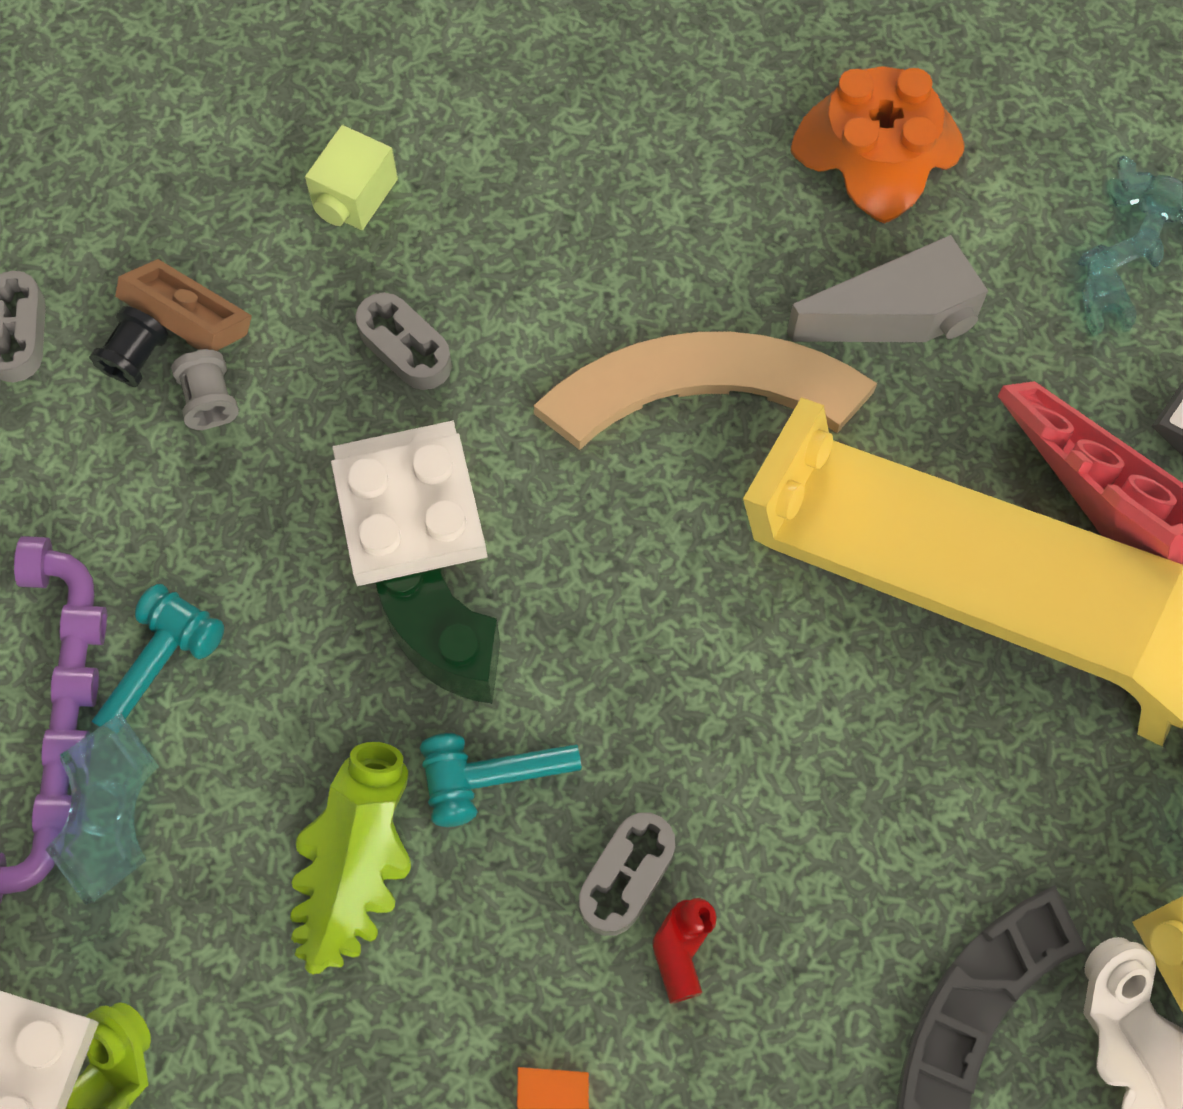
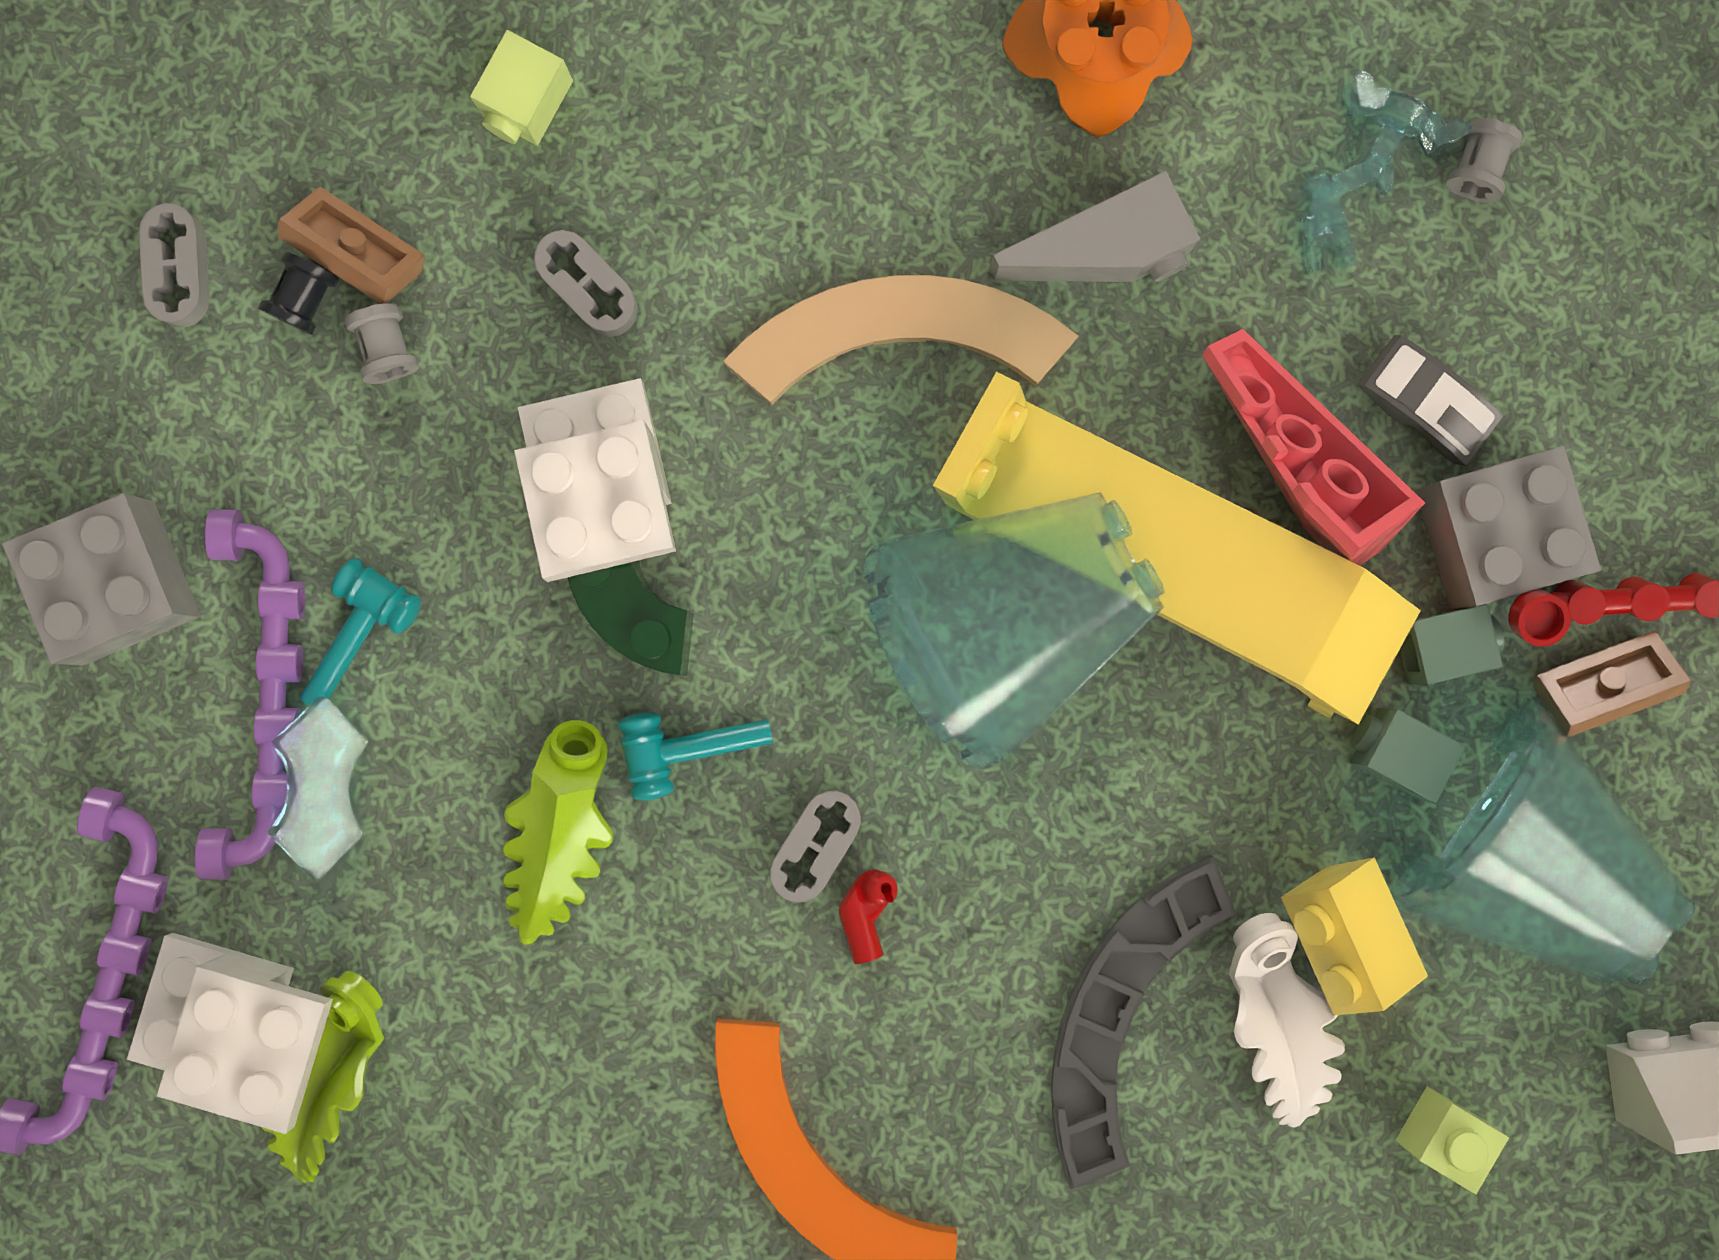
camera: 10 degrees left, 20 degrees up
(830, 631) = (1008, 616): none -> clear light blue cone

